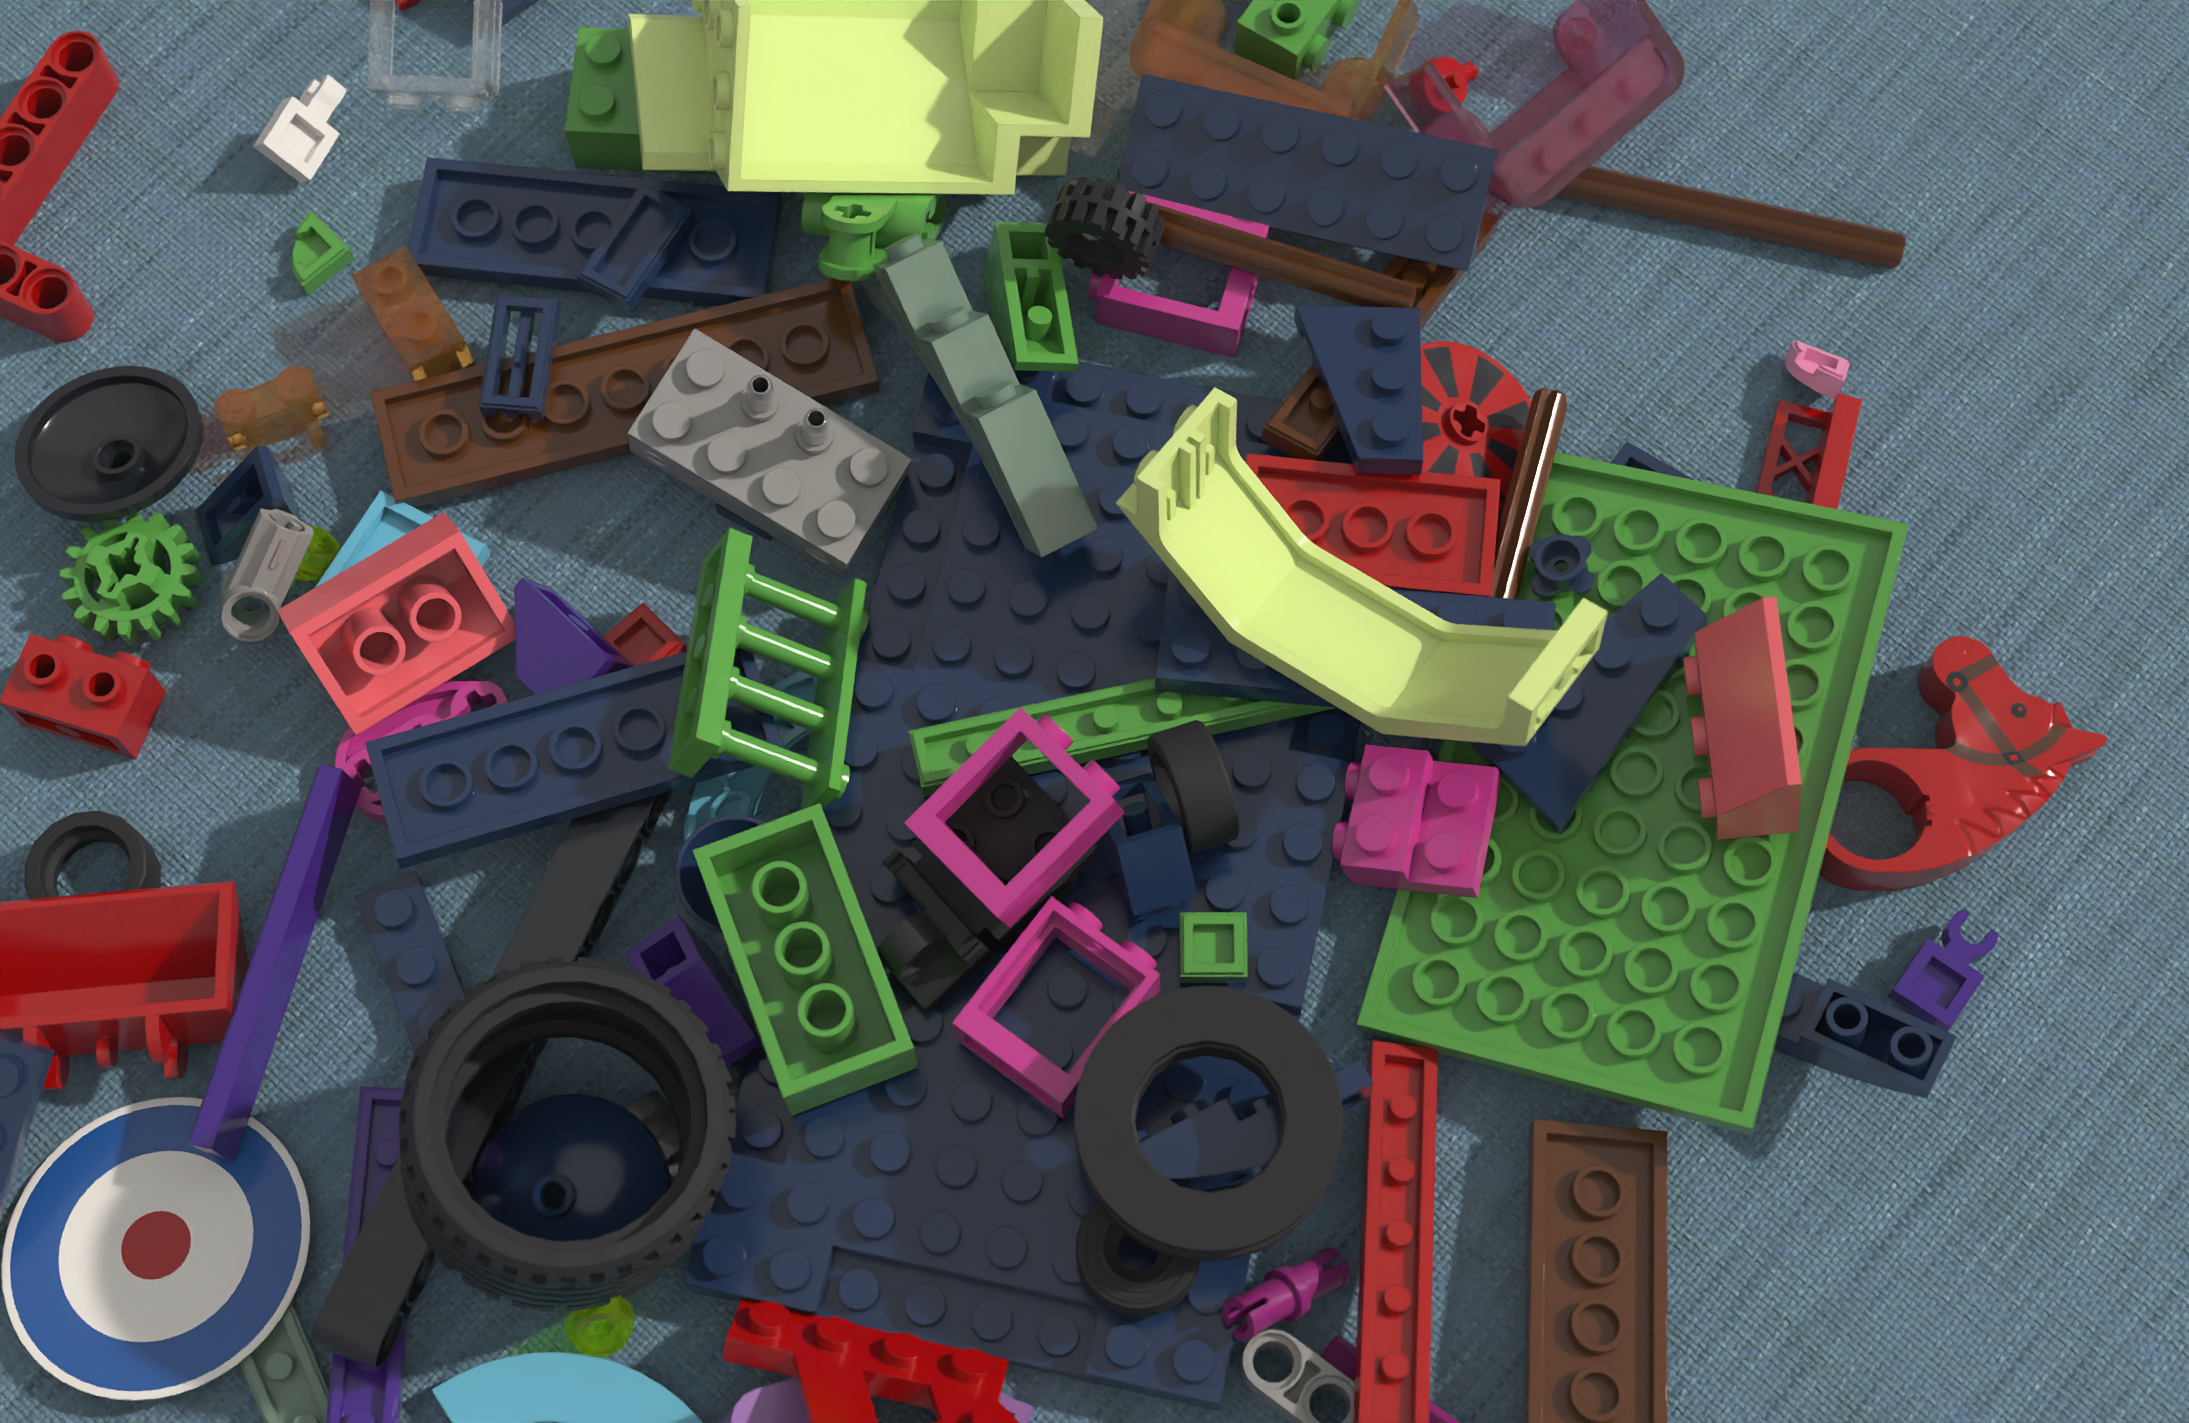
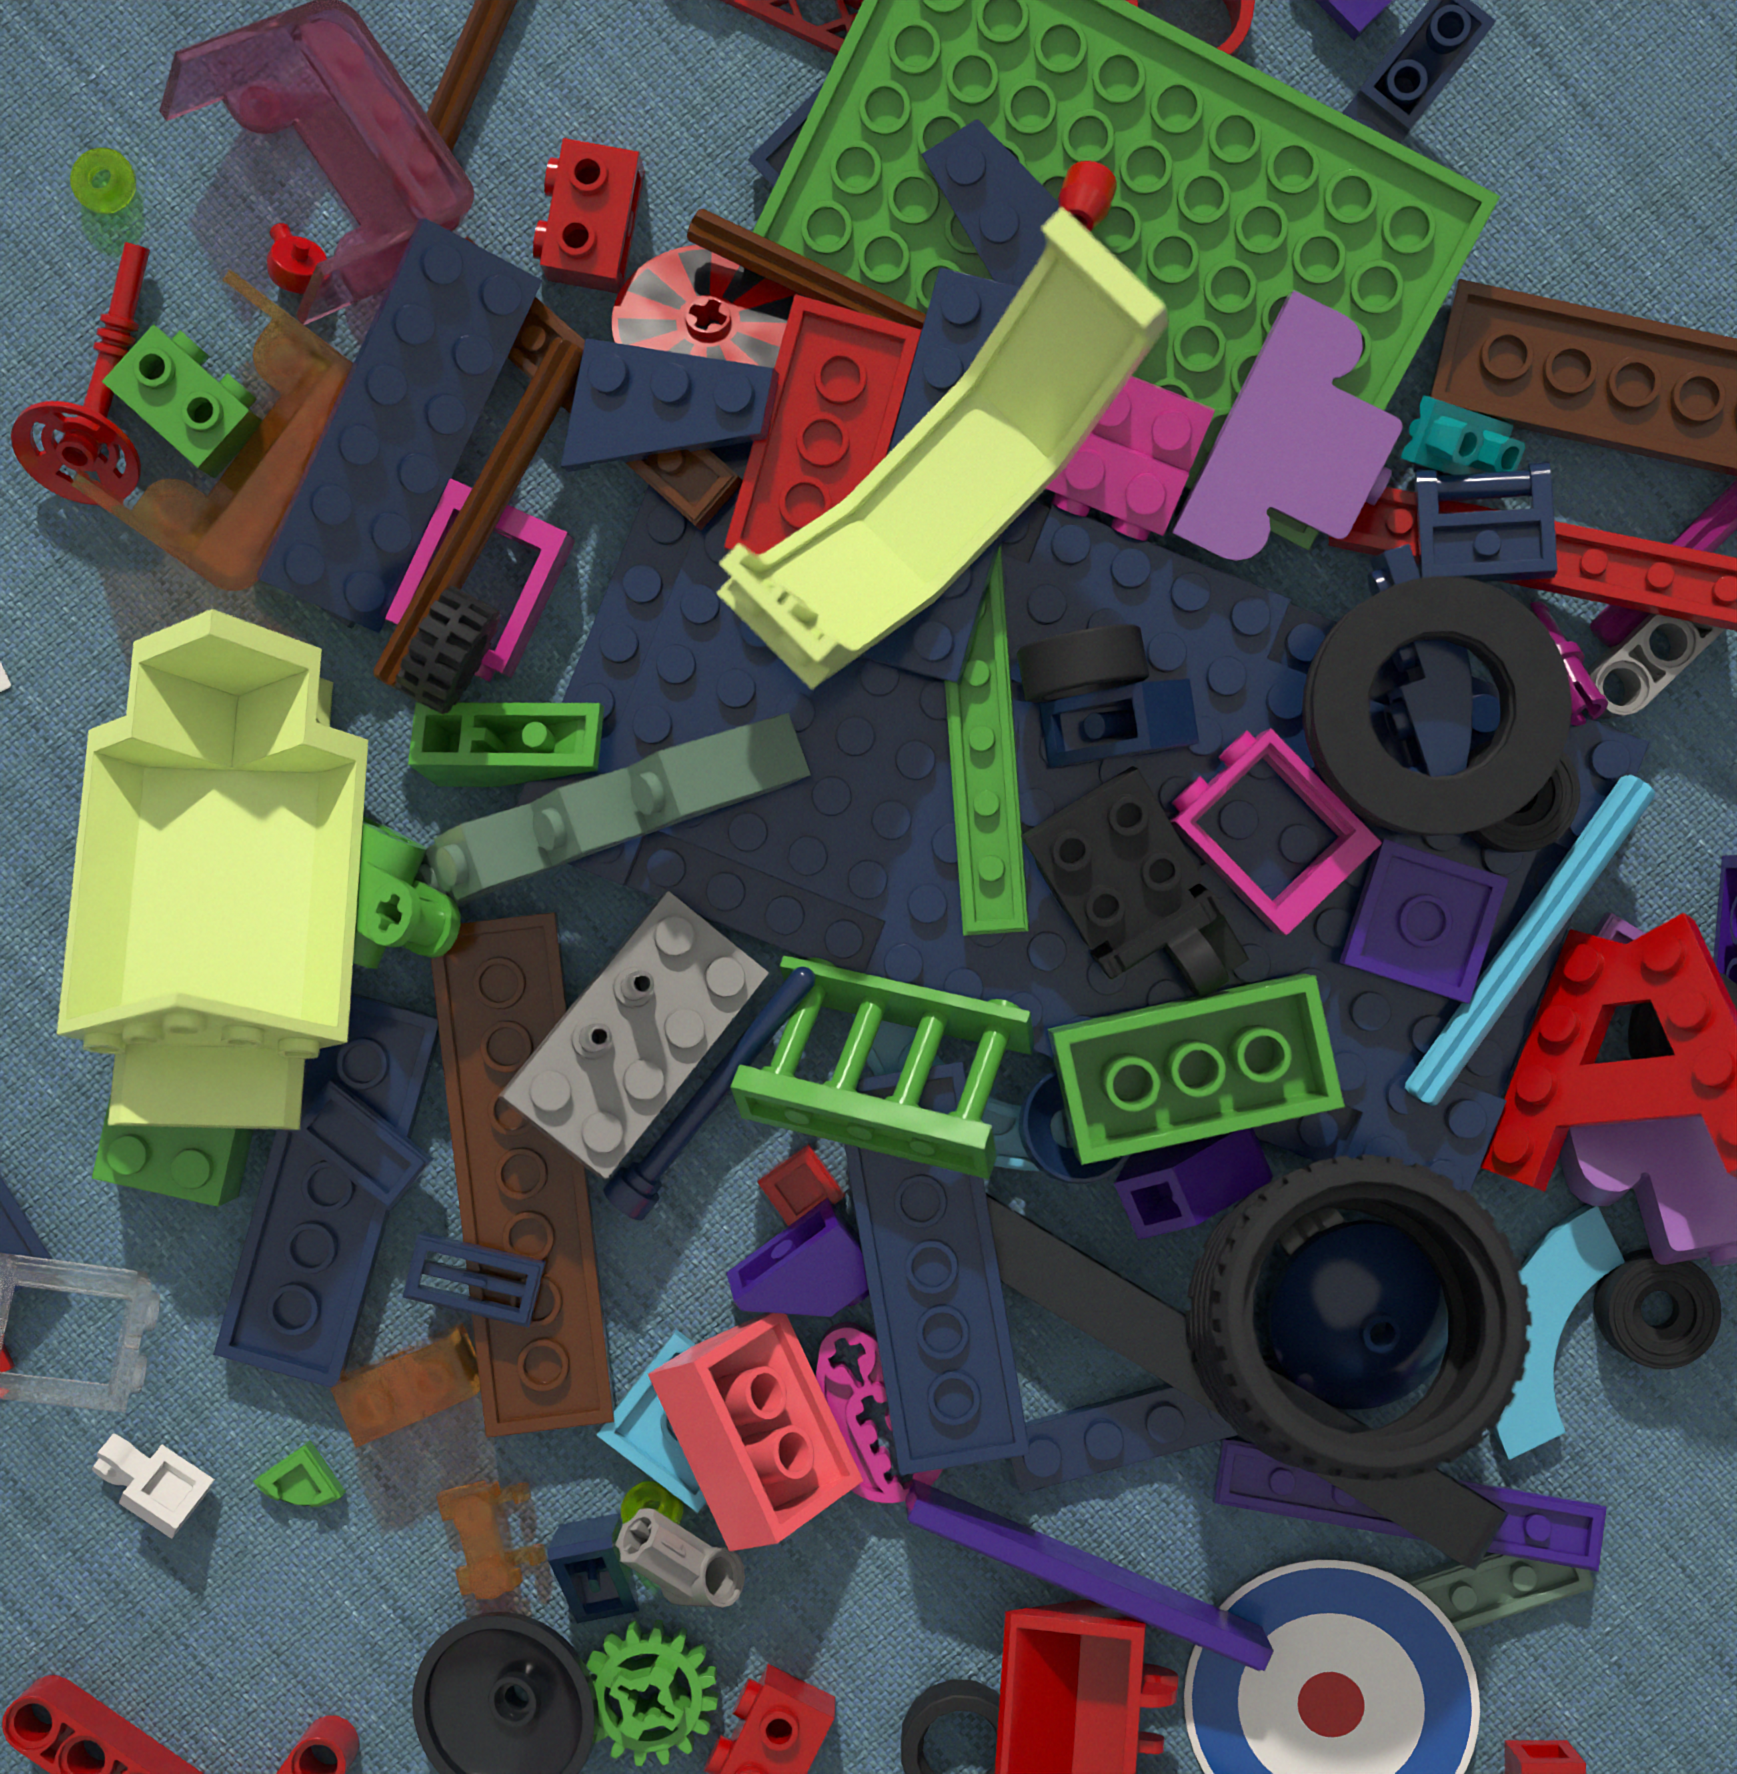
camera: 80 degrees left, 20 degrees up
(624, 493) = (636, 1187): none -> dark blue piece
(989, 1296) = (1530, 939): none -> medium azure axle
(990, 1177) = (1424, 920): none -> dark purple plate
(1015, 898) = (1145, 896): dark pink window -> none
(1213, 947) = (1229, 673): bright green tile -> none
(1394, 1181) = (1487, 543): none -> dark blue plate
(1458, 968) = (1292, 440): none -> medium lavender brick
(1497, 1152) = (1461, 440): none -> teal hips
(1542, 316) = (590, 215): none -> red brick
(1561, 549) = (877, 238): dark blue plate -> none
(1653, 724) = (1087, 193): none -> red hose
(1745, 724) = (1115, 104): coral slope -> none

